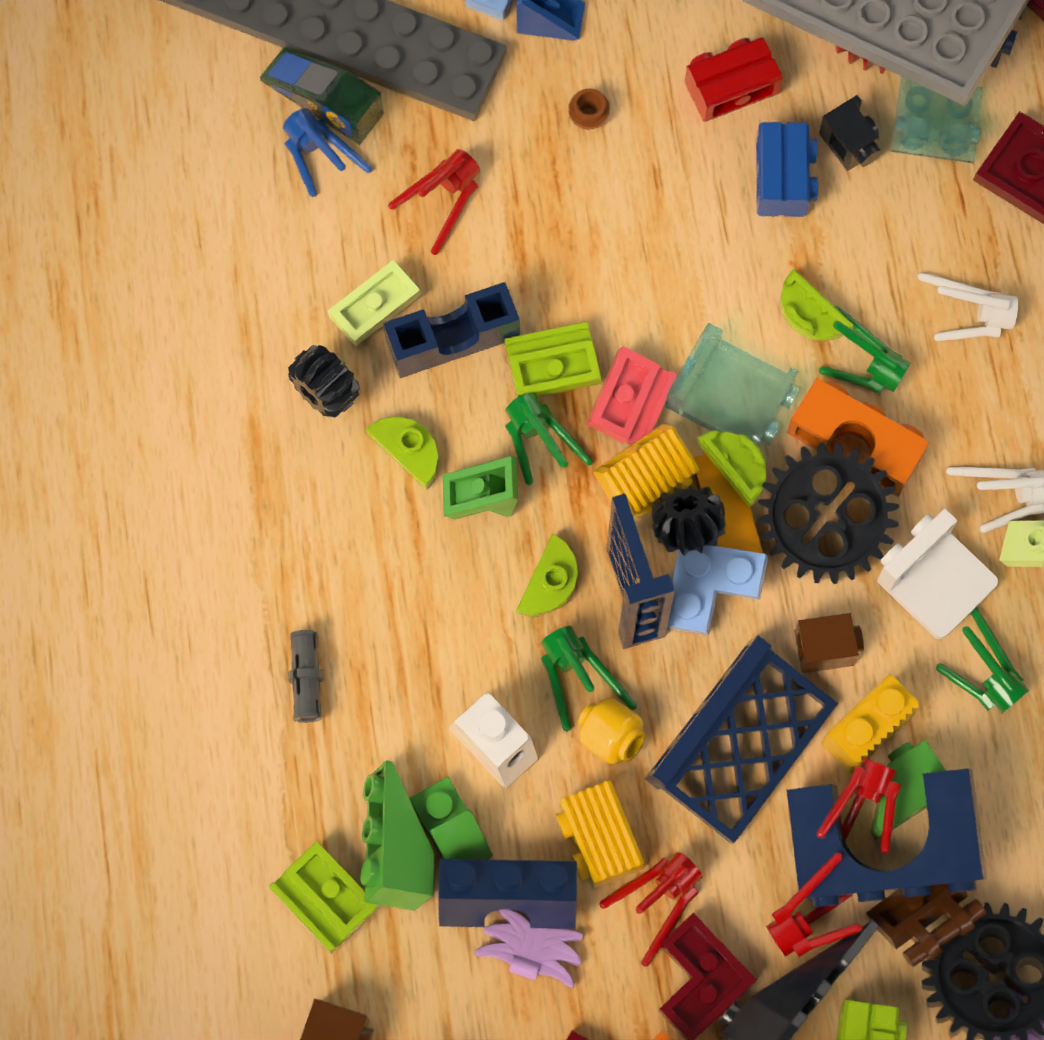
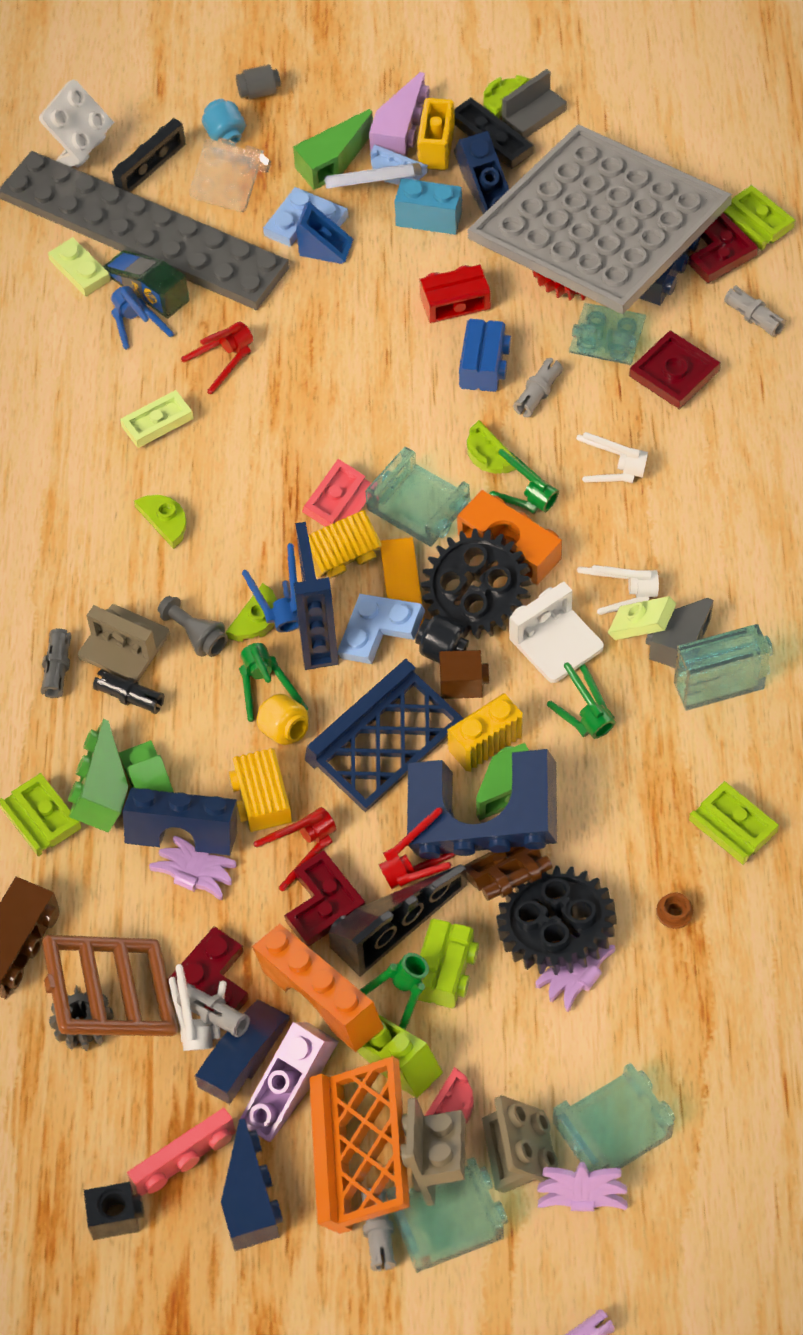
camera: 10 degrees right, 15 degrees down
(230, 77) = (79, 267): none -> yellowish green plate
(323, 381) = (107, 462): black gear -> none
(387, 638) = (122, 641): none -> dark tan bracket
(406, 707) = (128, 691): none -> black pin
(479, 324) = (232, 438): dark blue arch -> none
(481, 489) = (213, 544): bright green slope -> none
(489, 616) = (205, 635): none -> dark grey piece
(495, 739) = (185, 704): white torso -> none
(532, 419) = (261, 506): green plant -> none
(553, 360) = (284, 468): lime plate -> none
(593, 99) = (343, 305): dark orange plate -> none
(593, 575) = (285, 610): none -> blue plant
(688, 519) = (366, 575): black gear -> none
(738, 462) = (412, 542): lime plate -> none
(795, 596) = (440, 635): none -> black head
(851, 134) = (538, 335): black brick -> none
(860, 209) = (538, 387): none -> light grey pin
(868, 782) = (476, 764): red plant -> none

